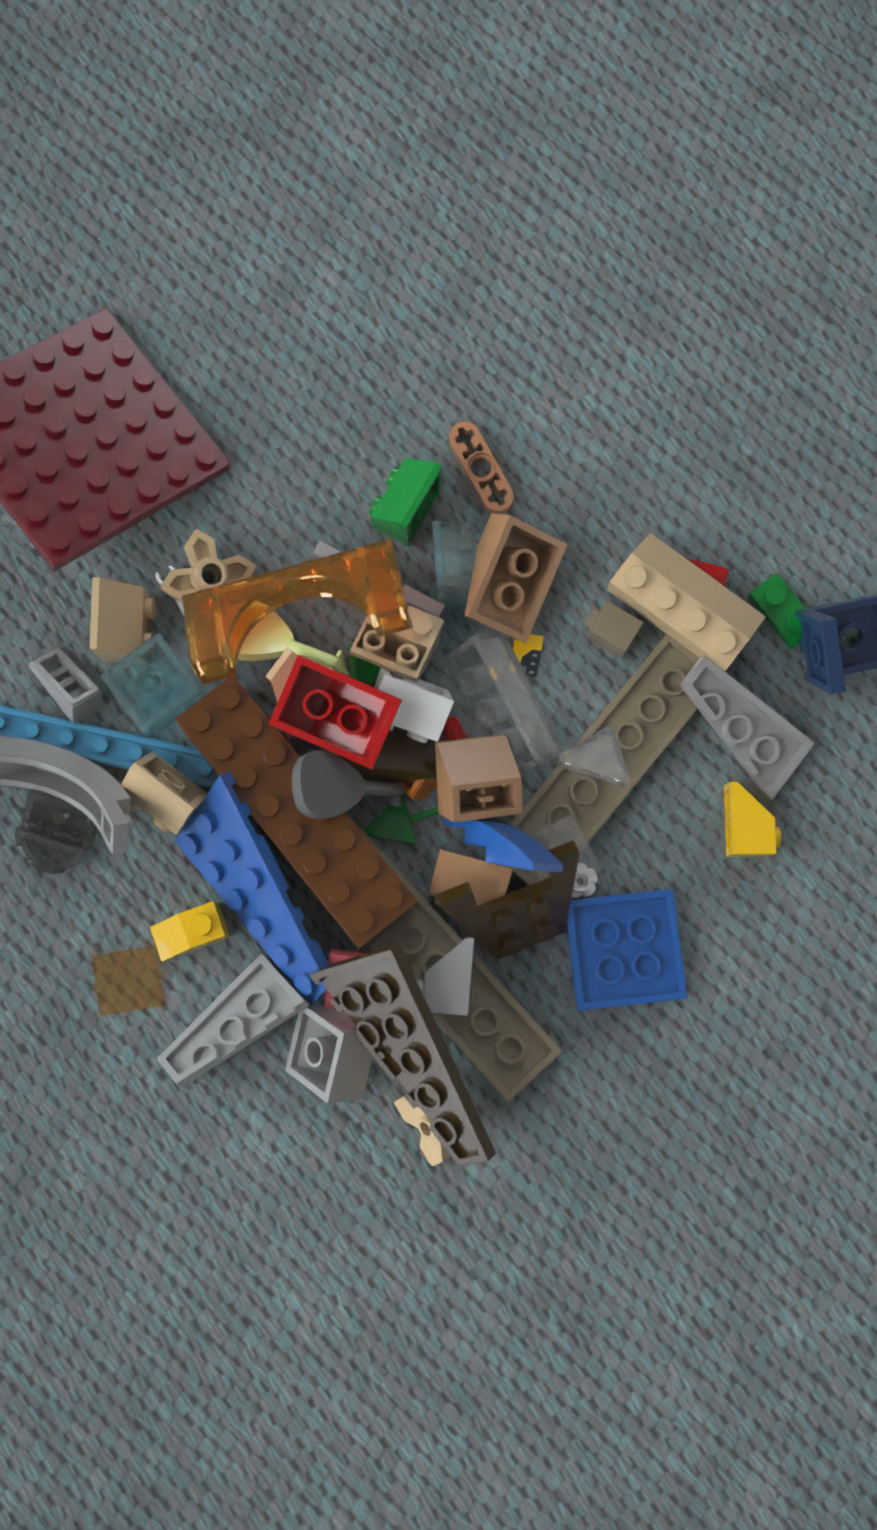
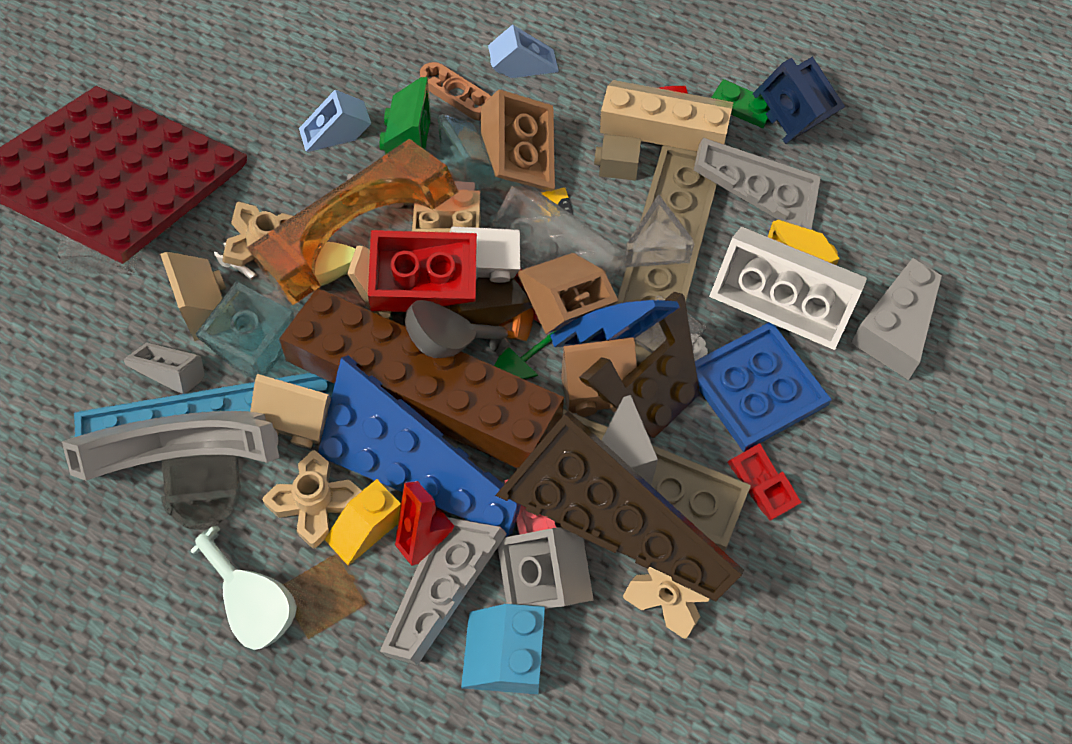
camera: 25 degrees left, 20 degrees down
(63, 969) = (255, 604): none -> light aqua piece
(161, 864) = (311, 498): none -> tan plant
(238, 960) = (420, 524): none -> red slope
(264, 1107) = (504, 649): none -> dark azure slope
(335, 462) = (335, 122): none -> light blue slope
(570, 453) = (521, 54): none -> light blue slope
(580, 1049) = (768, 488): none -> red slope
(704, 867) = (787, 287): none -> white brick
(806, 943) = (900, 320): none -> light grey wedge

